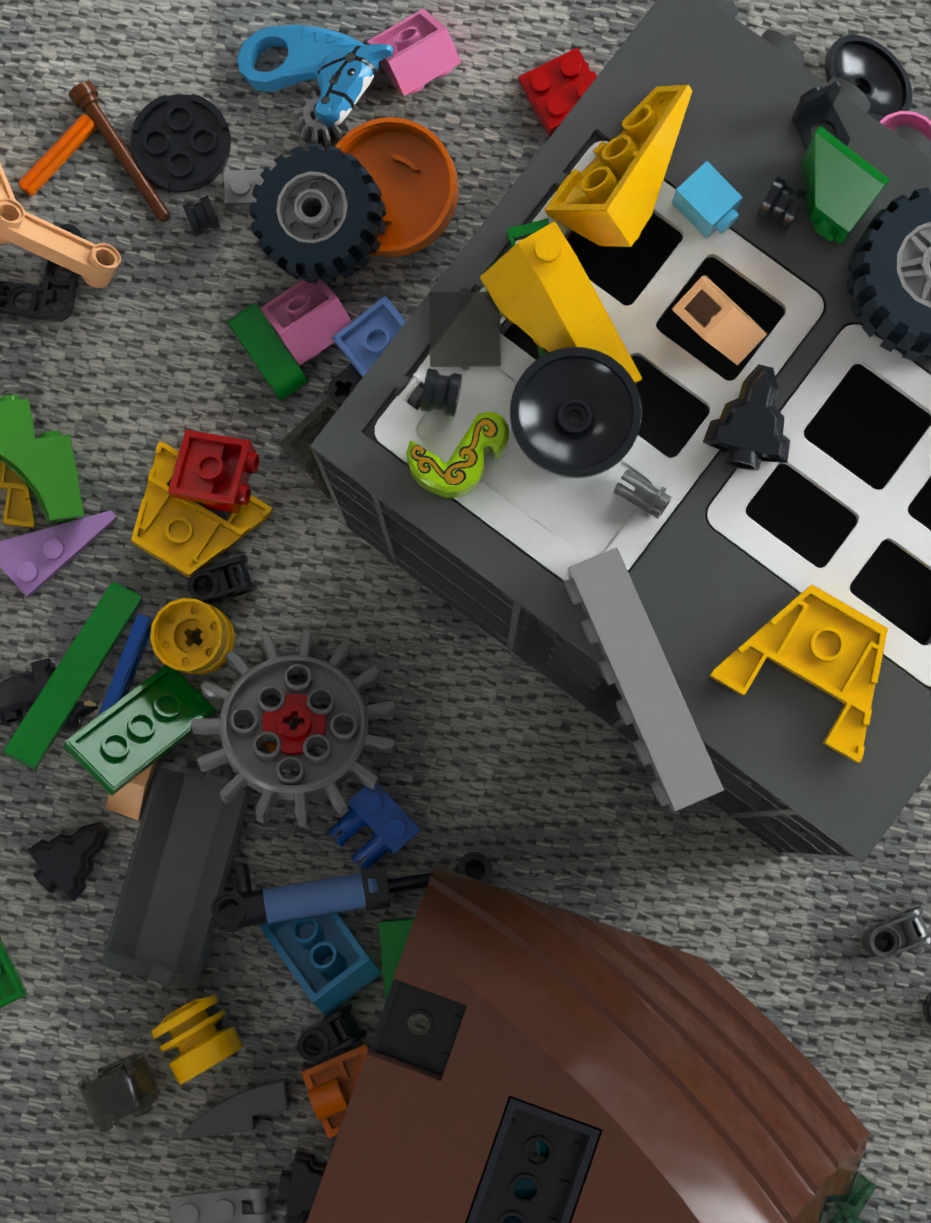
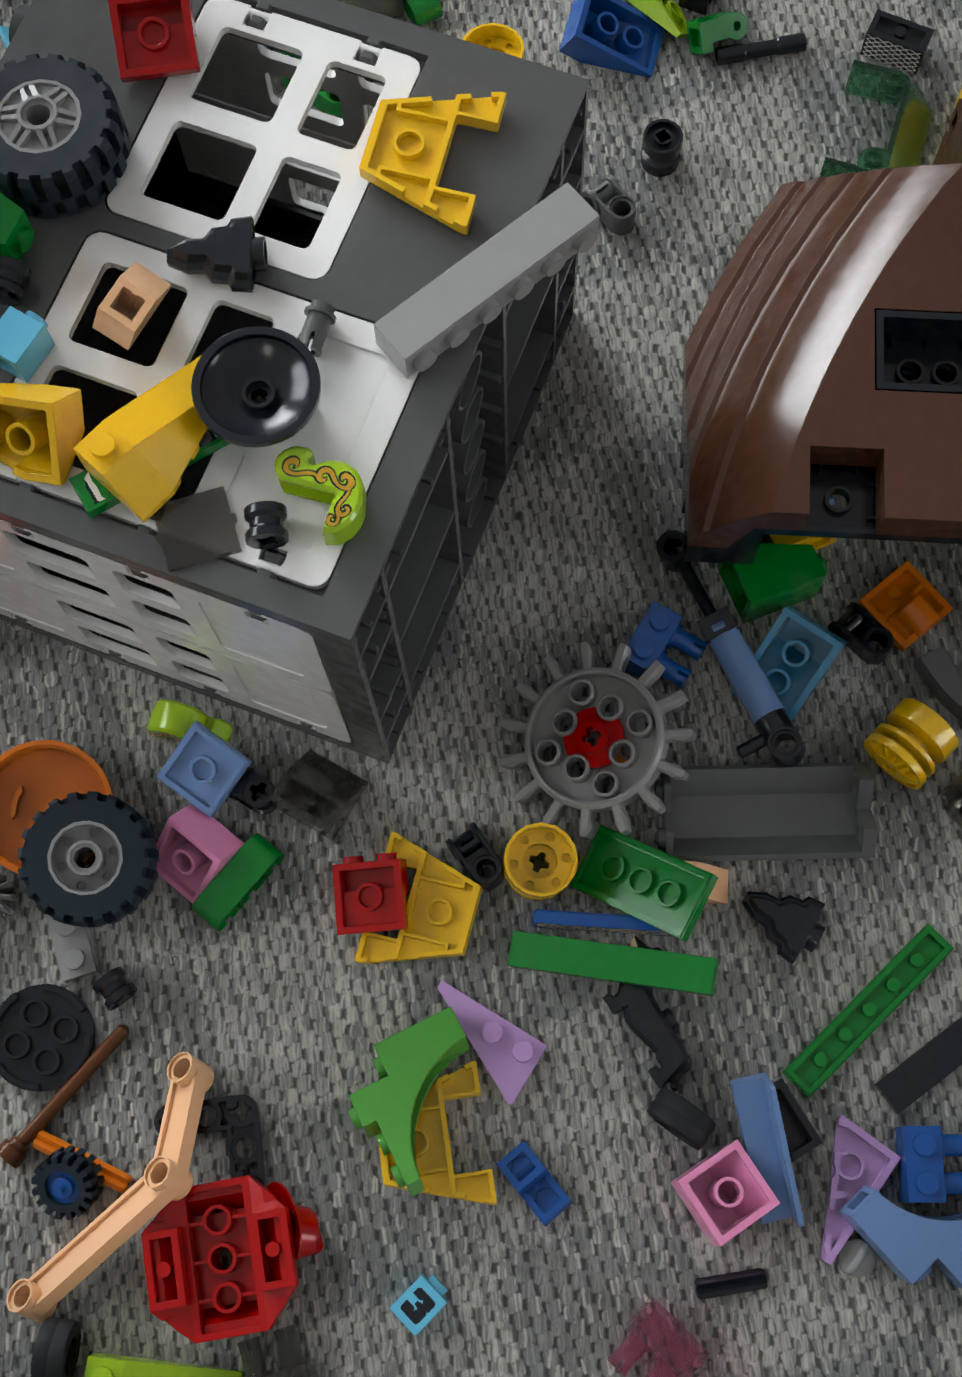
camera: 105 degrees left, 10 degrees down
(38, 137) = (67, 1182): none -> black wheel

